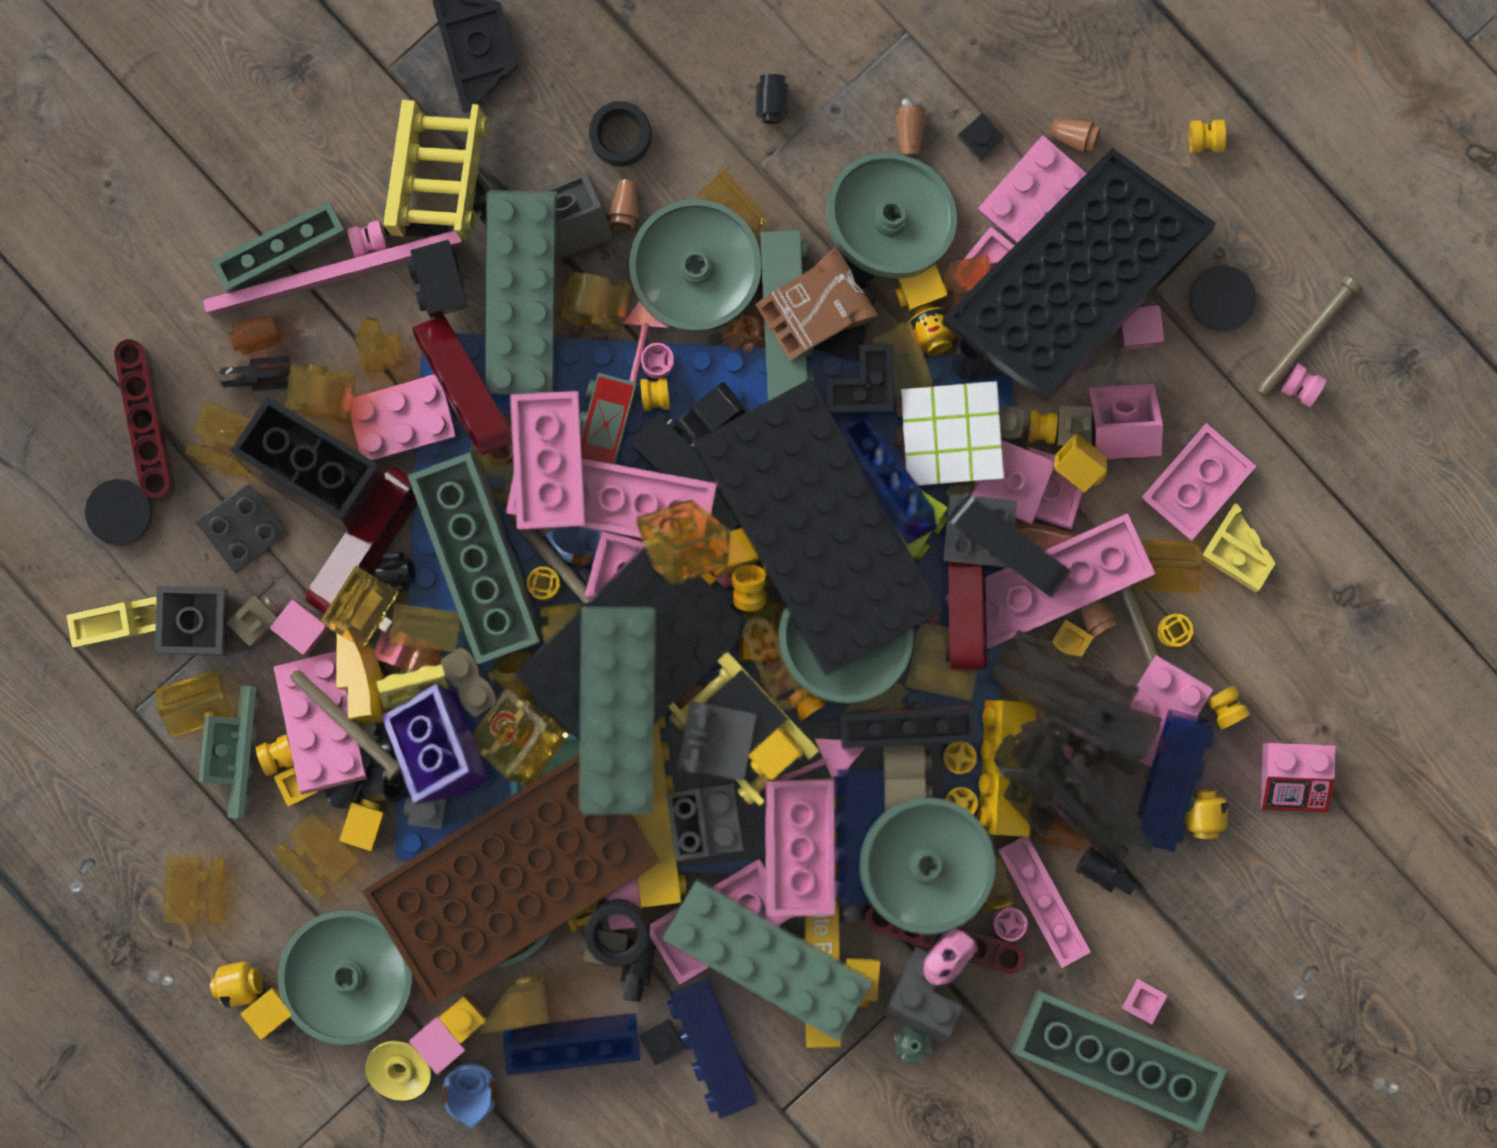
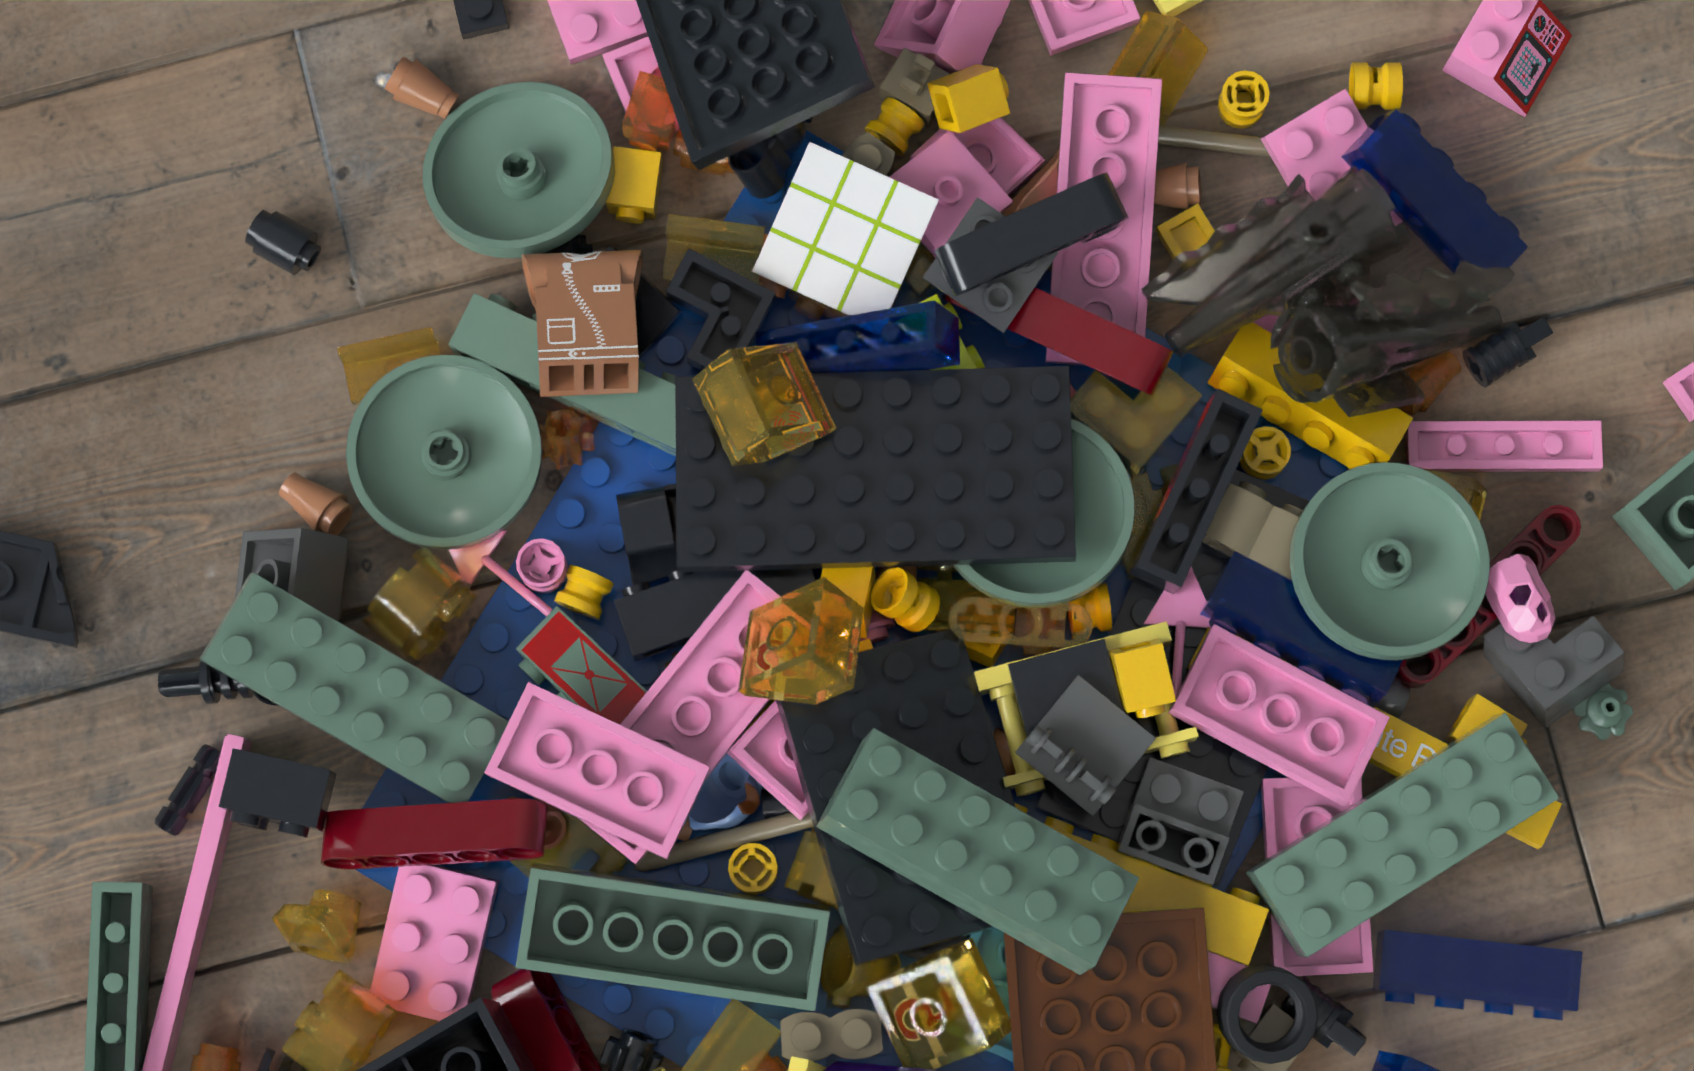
camera: 65 degrees left, 5 degrees down
(360, 242) = (166, 872): bright pink wheel -> none
(408, 152) = (89, 744): light yellow fence -> none
(613, 109) = (197, 429): black tyre -> none
(661, 1042) = (1434, 1036): black plate -> none
(819, 439) = (762, 402): none -> clear yellow slope
(930, 332) = (695, 194): yellow head -> none
(969, 803) = (1311, 476): yellow wheel -> none
(1012, 927) = (1518, 498): bright pink wheel -> none
(1208, 815) = (1503, 180): yellow head -> none

